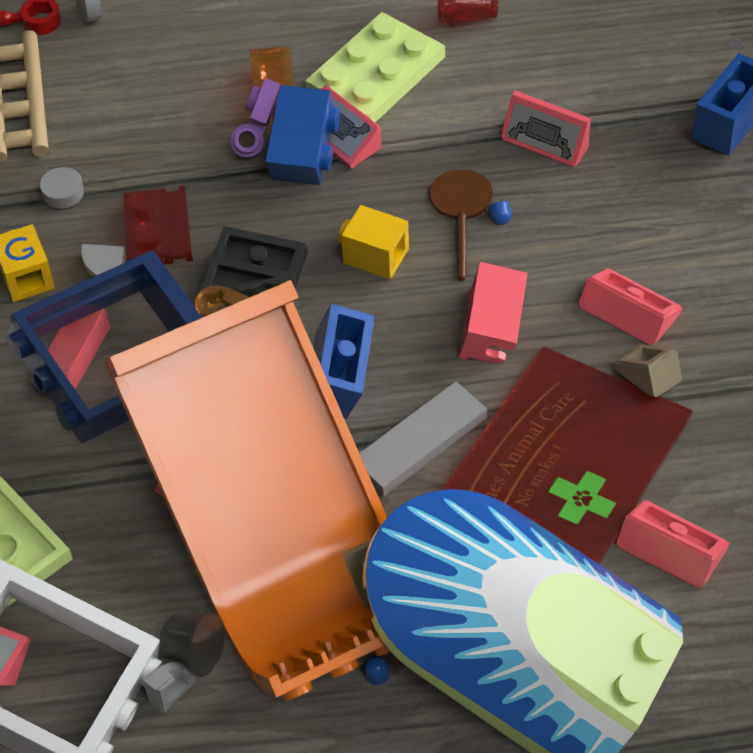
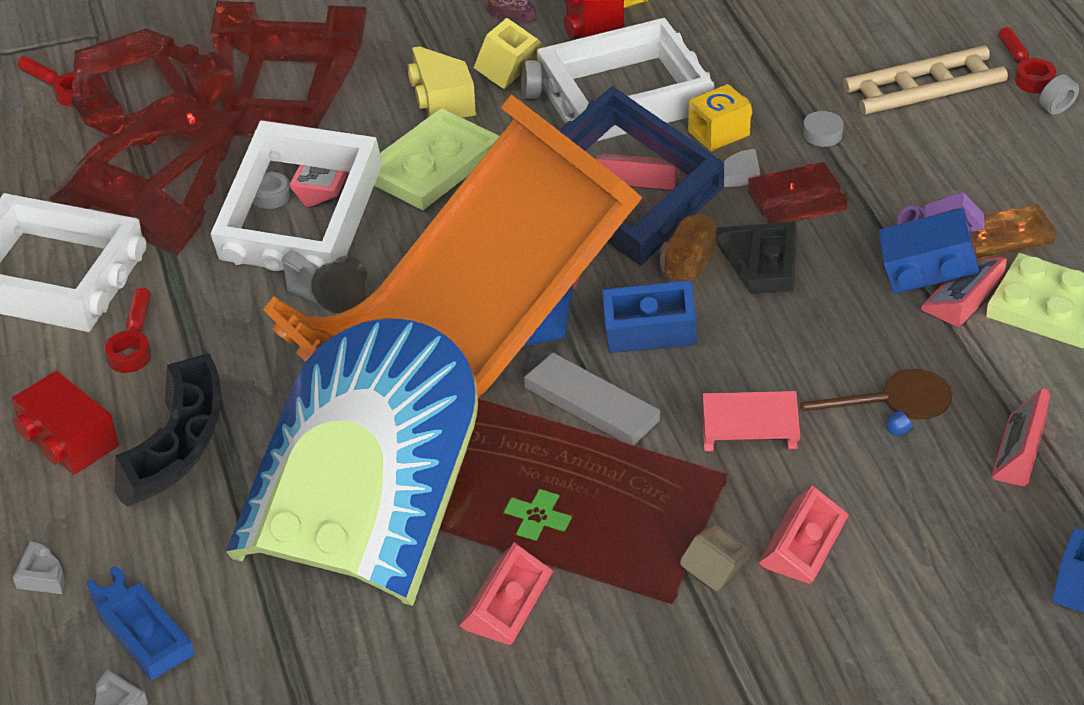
camera: 80 degrees right, 10 degrees down
(374, 241) = (815, 329): yellow brick -> none

